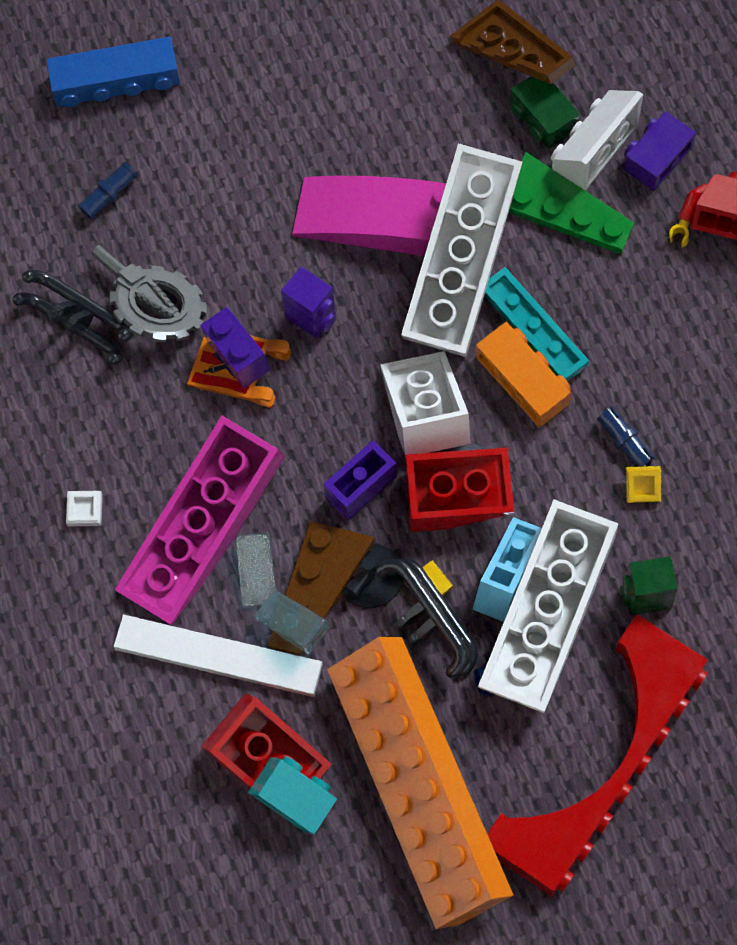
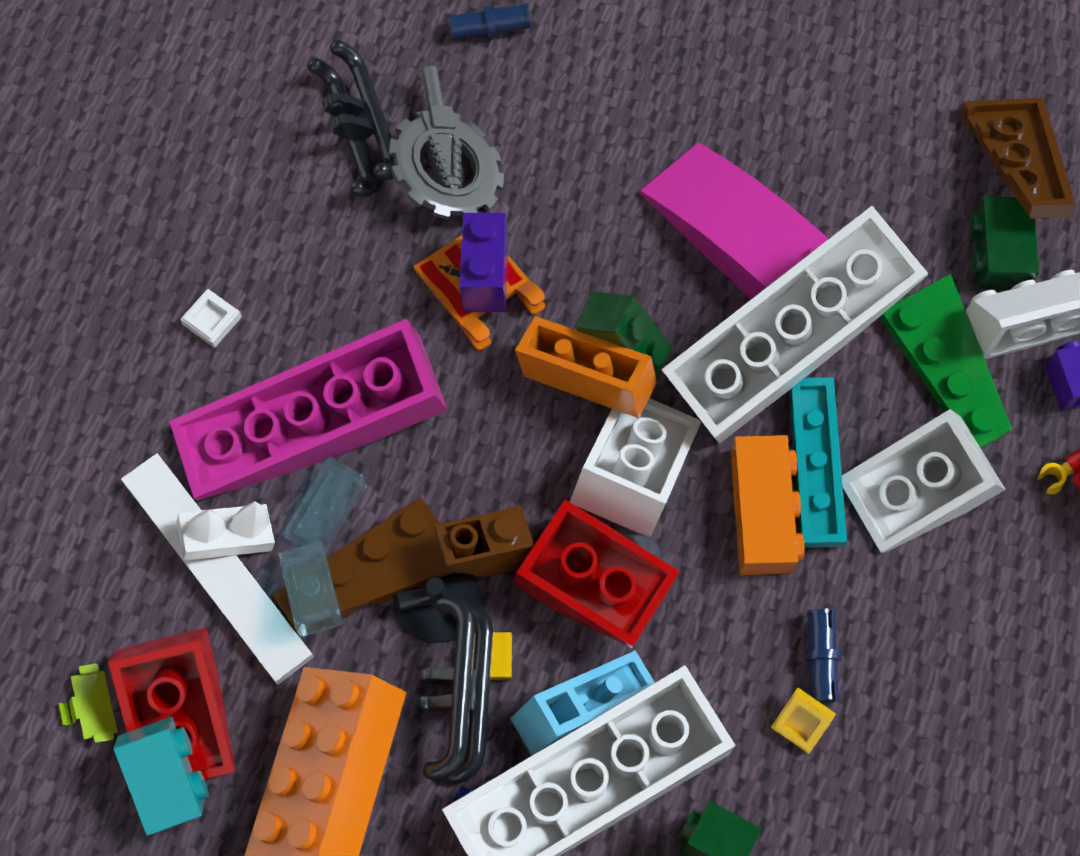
camera: 30 degrees right, 0 degrees up
(208, 628) = (225, 531): none -> white tile
(209, 793) = (90, 704): none -> lime piece
(309, 302) = (594, 263): dark purple brick -> none
(352, 366) = (586, 366): none -> orange brick
(360, 331) = (624, 323): none -> dark green brick
(360, 480) = (502, 486): dark purple brick -> none
(378, 515) = (485, 542): none -> reddish brown slope
(605, 293) = (921, 482): none -> white slope

